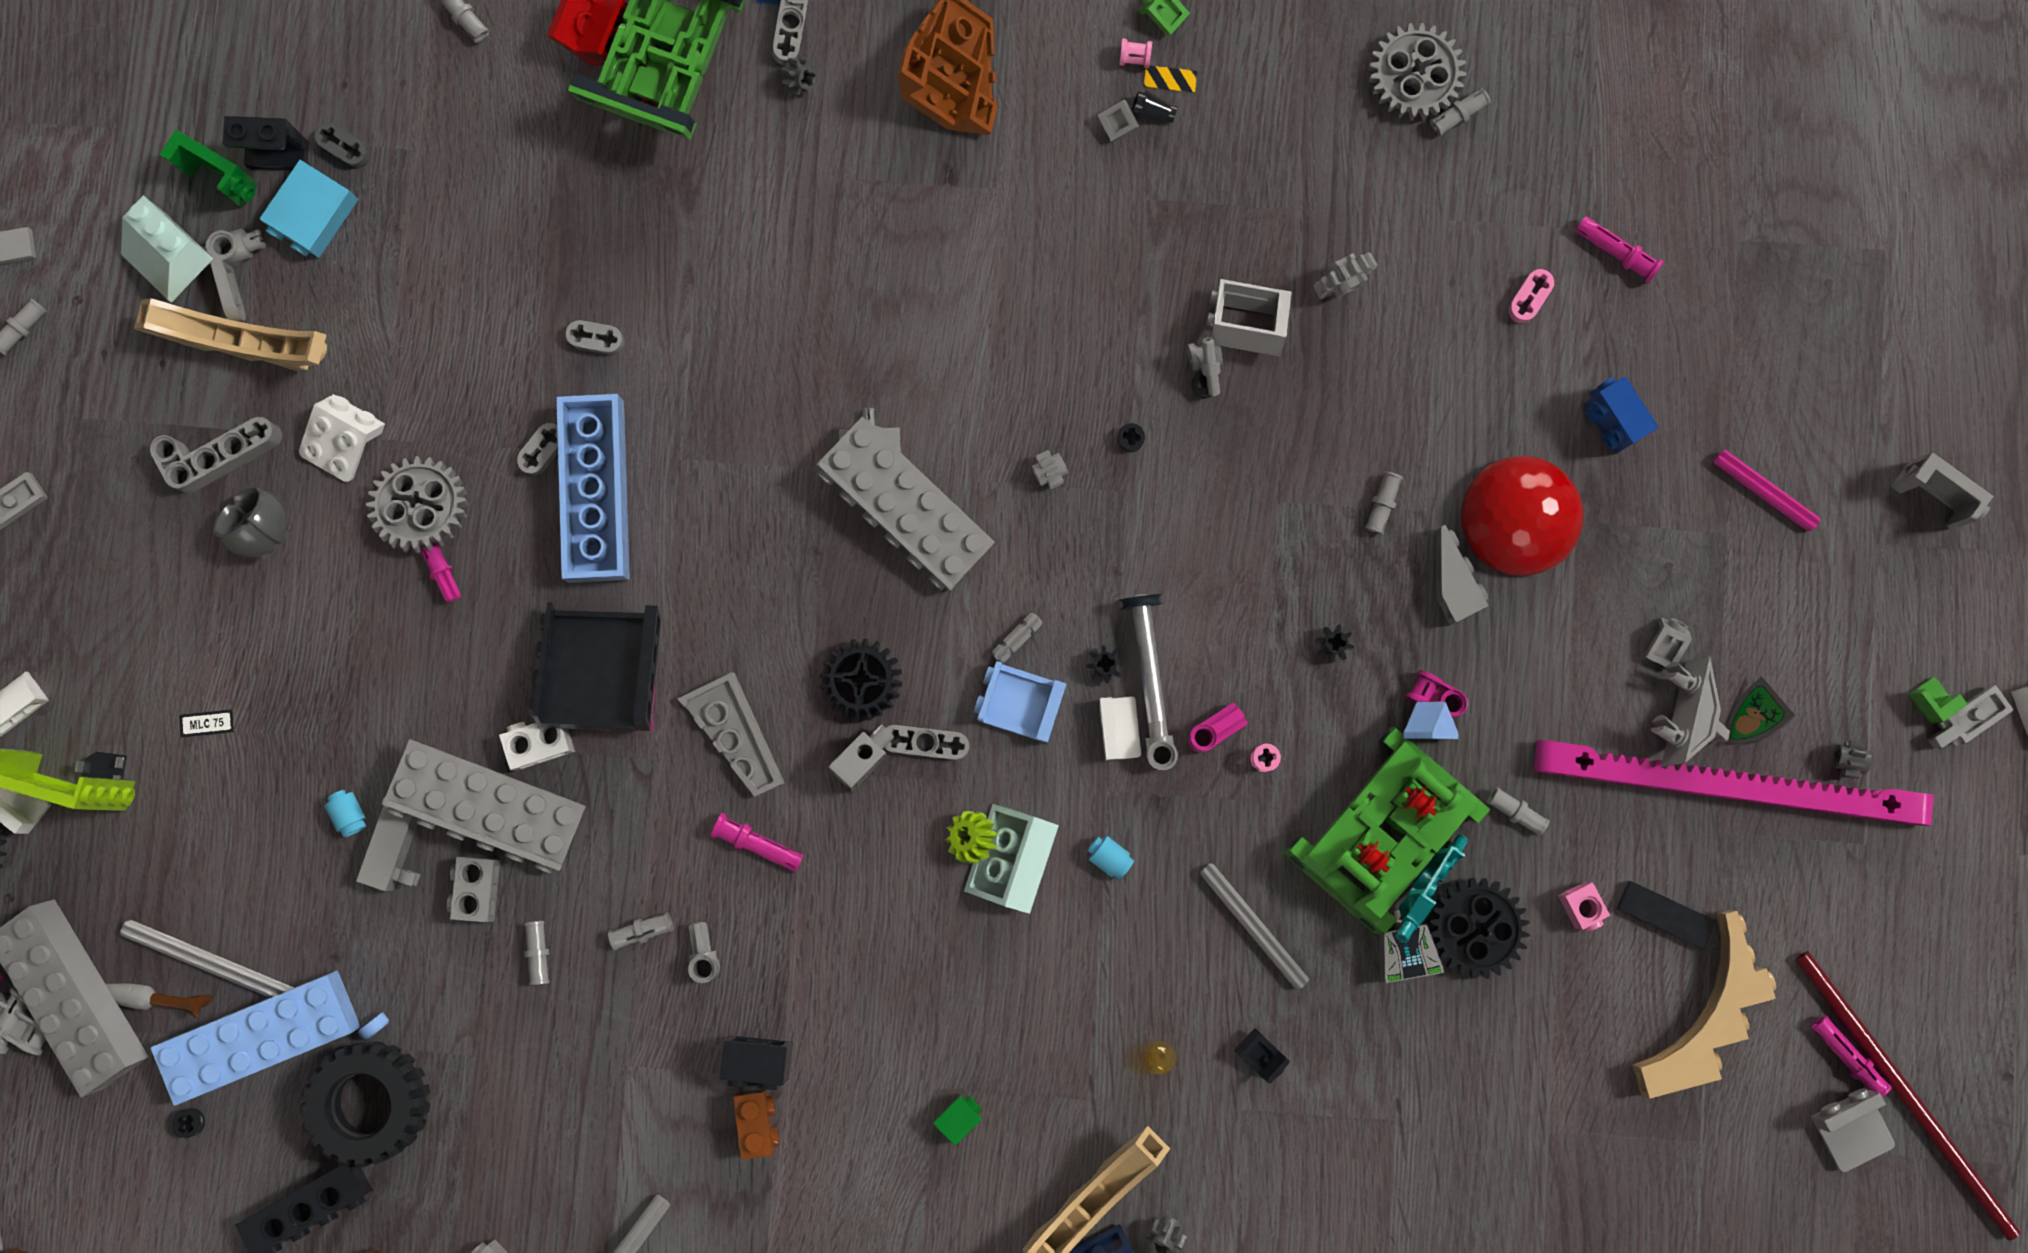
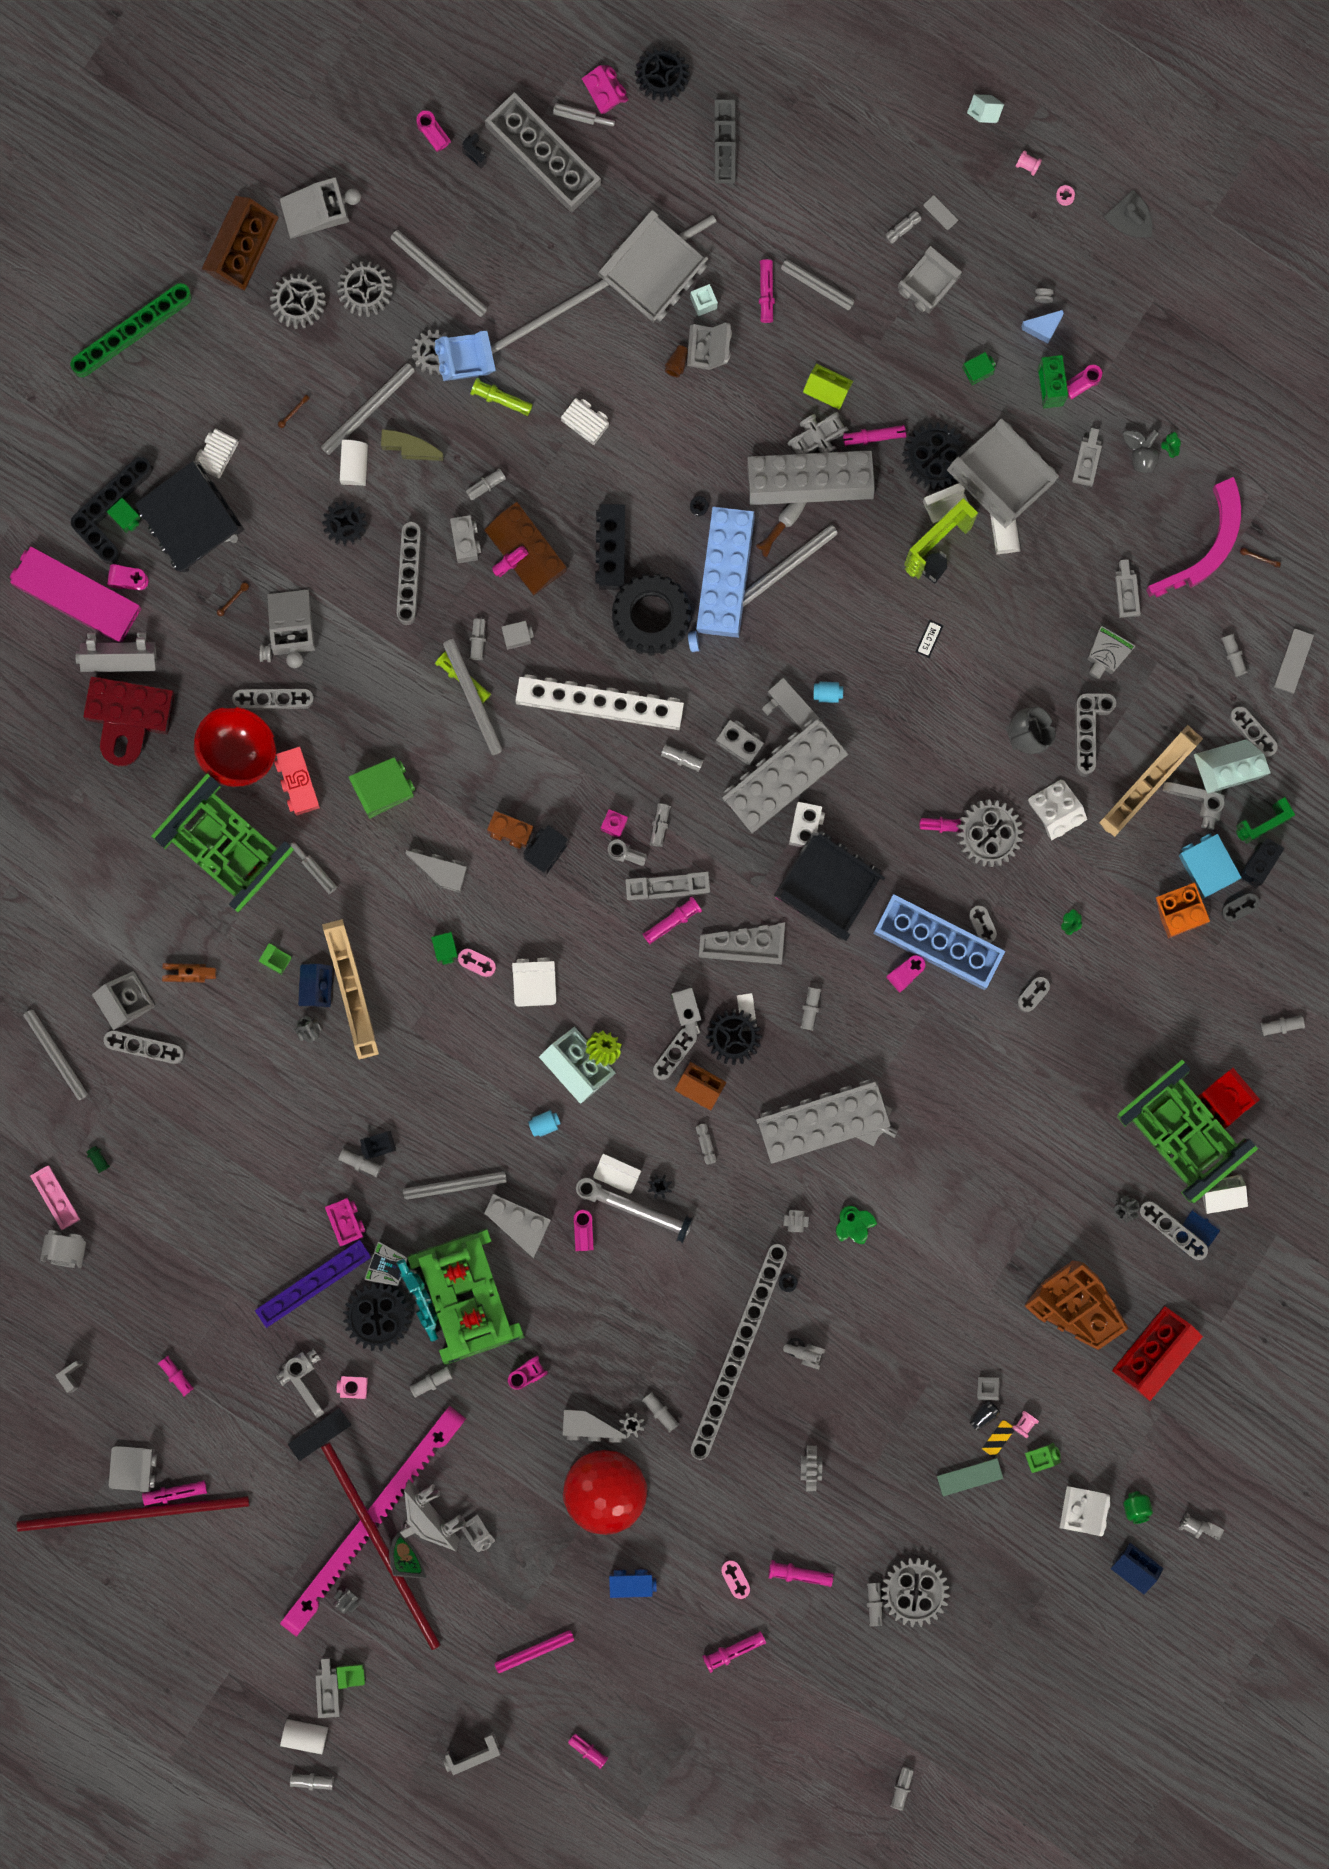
camera: 115 degrees right, 0 degrees up
(90, 267) = (1247, 716): none -> light grey beam
(98, 486) = (1108, 652): none -> light grey torso
(384, 210) = (1182, 910): none -> orange slope
(475, 340) = (1072, 922): none -> green plant
(538, 1114) = (608, 711): none -> white brick
(660, 508) = (904, 975): none -> dark pink piece
(672, 991) = (614, 824): none -> dark pink brick
(715, 874) = (668, 886): none -> light grey slope
(770, 603) = (810, 1008): none -> light grey pin
(810, 689) = (746, 1003): none -> white sticker
(861, 1175) = (445, 874): none -> light grey slope
(936, 975) = (534, 982): none -> white bracket
(946, 1065) = (474, 967): none -> bright pink beam
(949, 681) = (700, 1087): none -> dark orange brick
(1013, 392) = (856, 1227): none -> green plate
(1020, 702) = (666, 1123): light blue panel -> none
(1154, 1063) = (406, 1083): clear yellow piece -> none
(1238, 85) = (969, 1477): none -> sand green tile
(1255, 299) = (830, 1406): light grey window -> none
(1255, 816) = (519, 1223): none -> light grey wedge
(1265, 440) = (746, 1343): none -> light grey beam
(1270, 750) = (555, 1247): bright pink bush -> none
(1298, 1066) = (360, 1162): none -> light grey pin
(1341, 638) = (587, 1331): black gear -> none
(1383, 1040) = (345, 1222): none -> dark pink bracket
(1429, 530) = (637, 1426): none -> light grey gear
(1431, 721) = (513, 1358): light blue slope -> none
(1483, 233) = (791, 1573): none -> dark pink pin
(1485, 1035) = (313, 1284): none -> dark purple plate
(1588, 984) = (306, 1362): none -> light grey piece
(1705, 1144) = (175, 1376): none -> dark pink pin
(1721, 1023) = (253, 1452): tan arch -> none
(1759, 761) = (379, 1544): none -> dark red piece
(1845, 356) = (588, 1750): none -> dark pink axle

